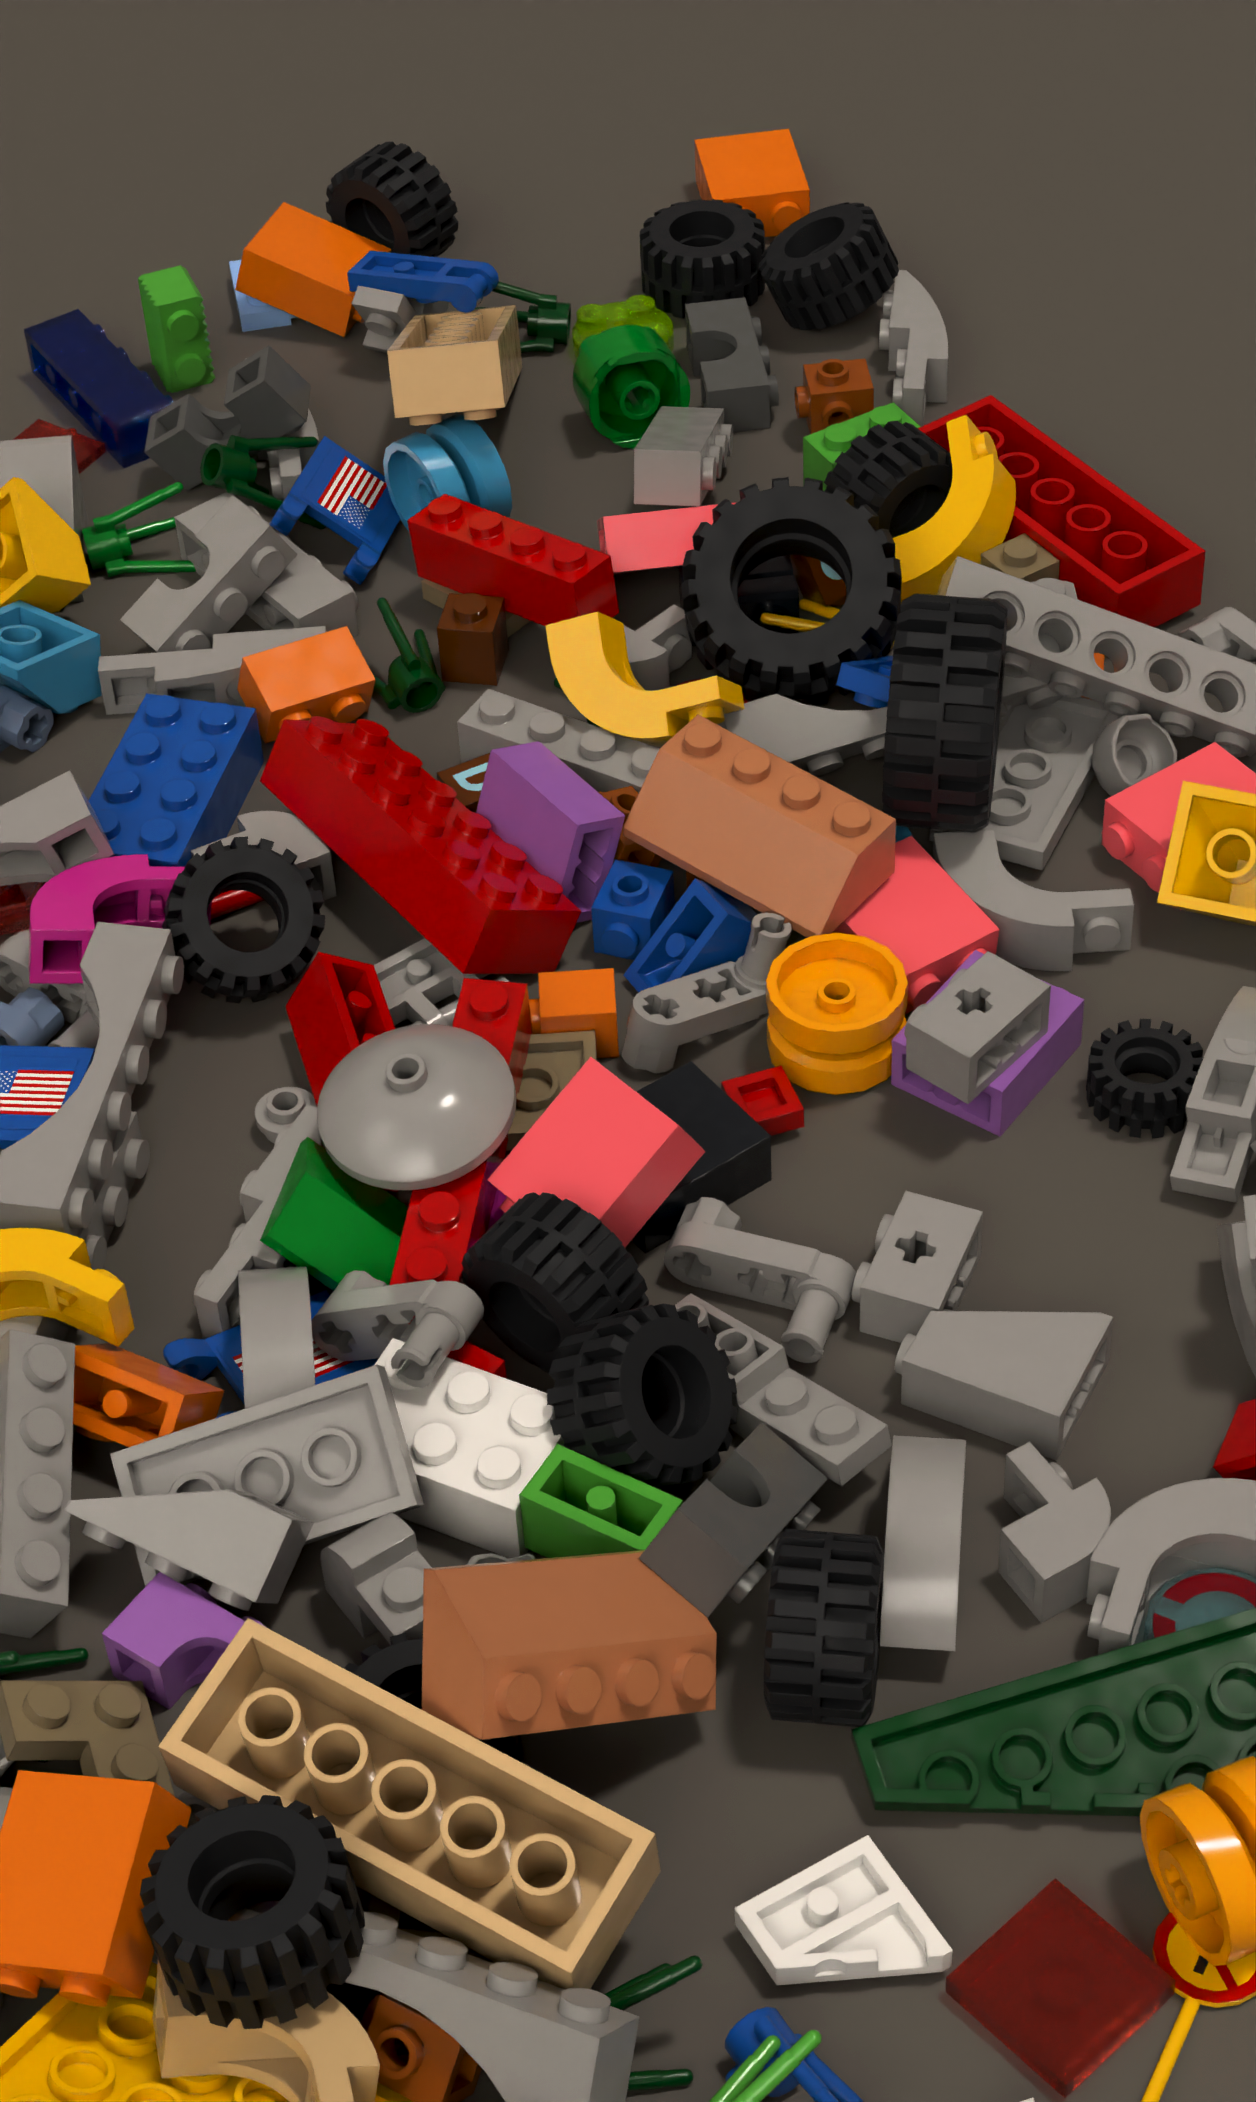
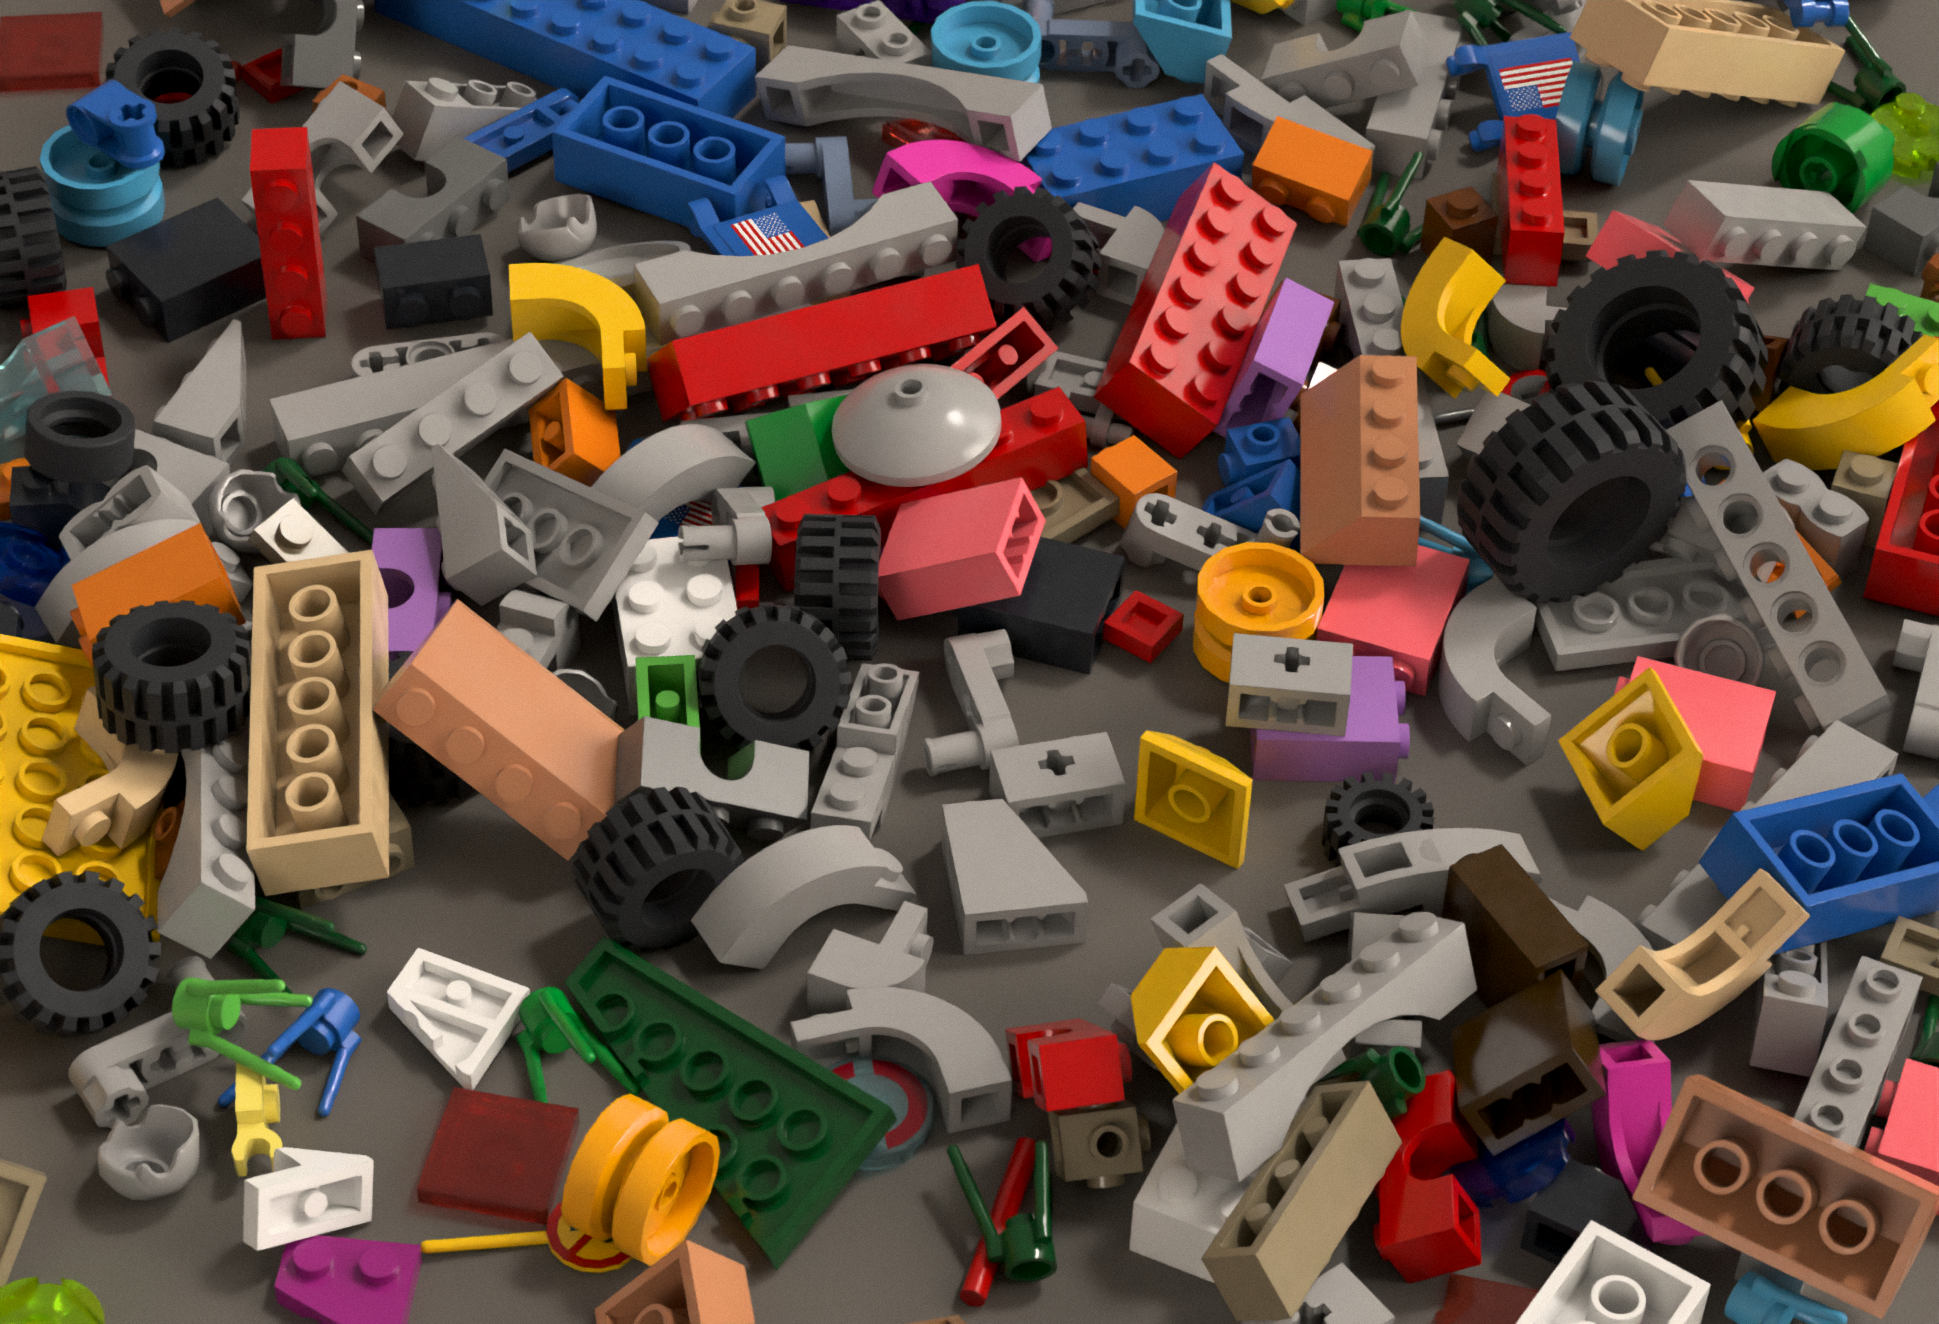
camera: 50 degrees right, 0 degrees up
(206, 1130) = (821, 343): none -> red brick
(924, 1841) = (556, 1028): none -> green plant
(1031, 1171) = (1193, 796): none -> yellow slope

